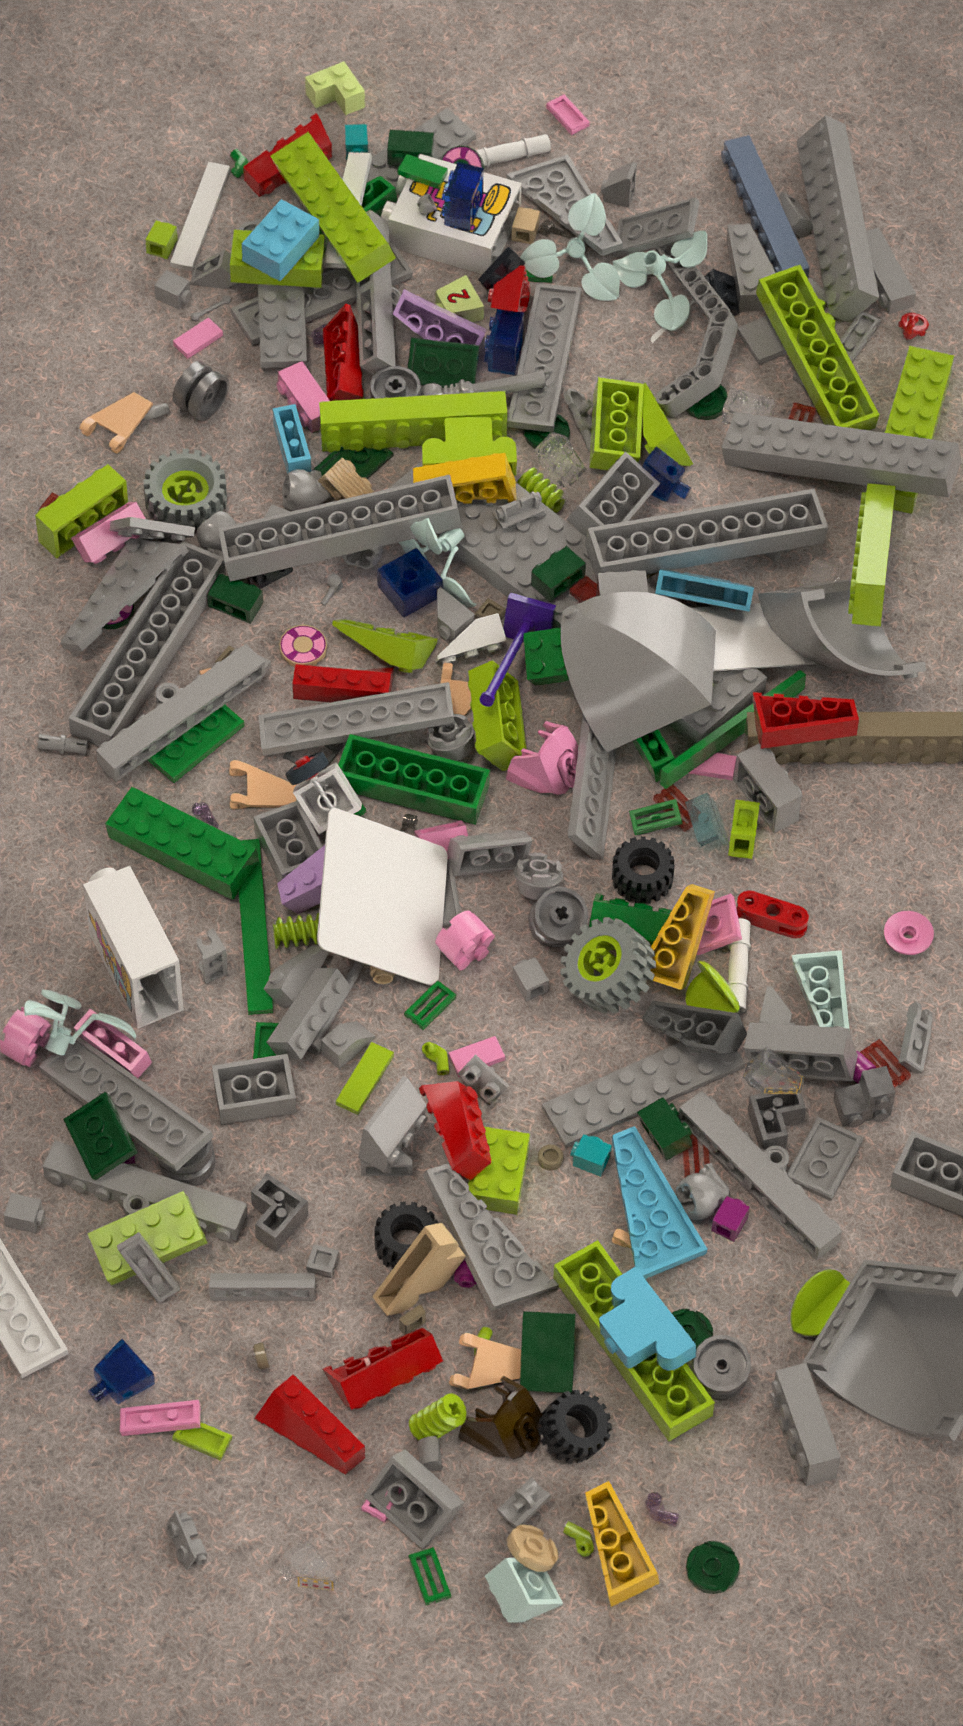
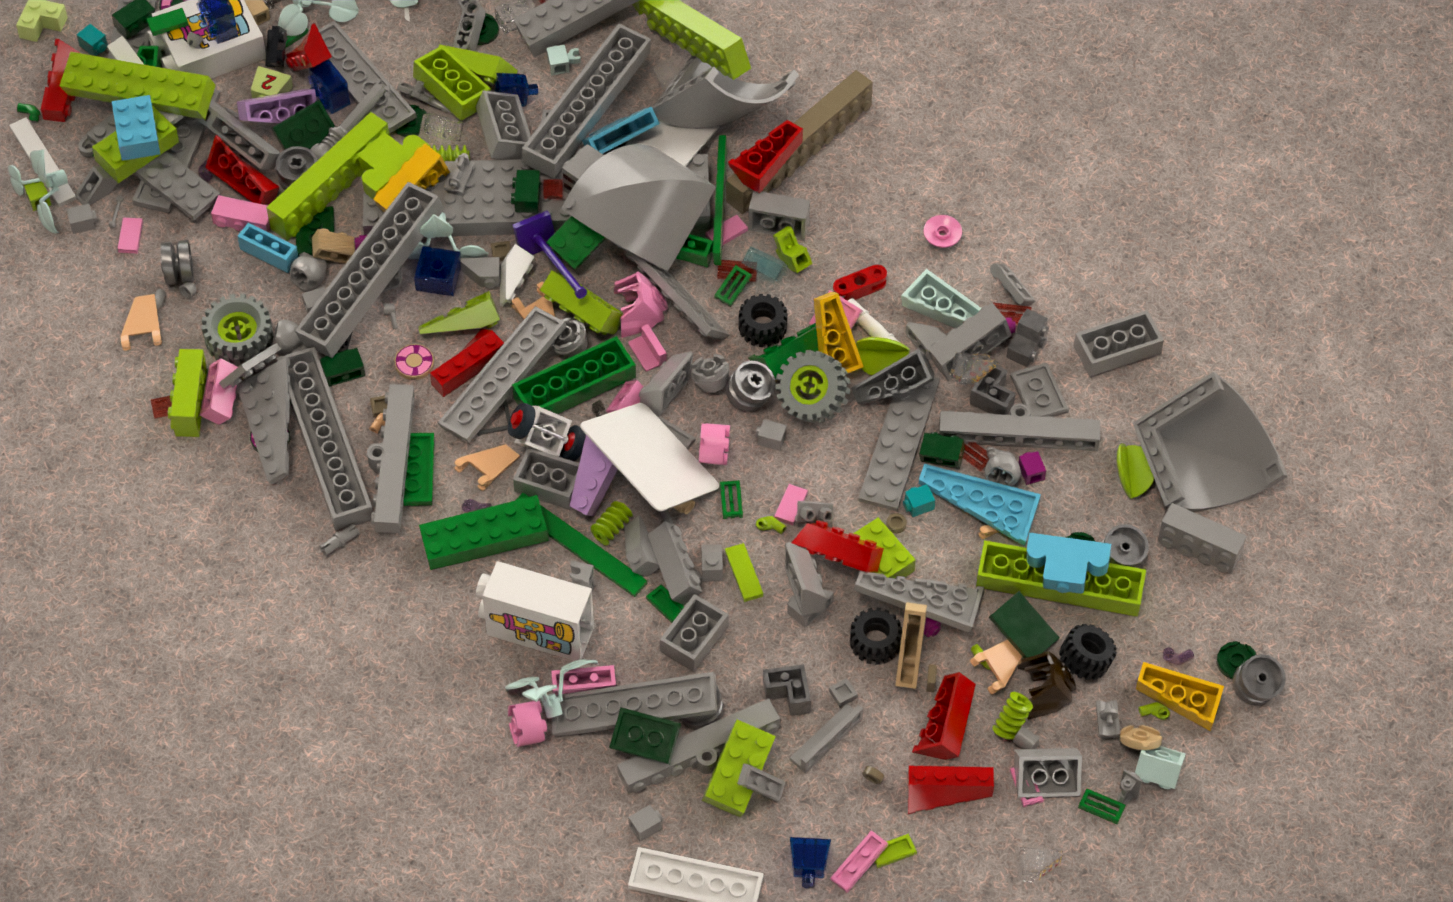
camera: 45 degrees left, 0 degrees up
(181, 235) = (51, 180): none -> light aqua plant
(189, 424) = (187, 289): none -> light grey hinge
(463, 1580) = (1130, 787): none -> light grey hinge
(513, 808) = (648, 349): none -> bright pink panel
(699, 1616) = (1259, 679): none -> flat silver wheel
(742, 483) = (559, 59): none -> light aqua brick

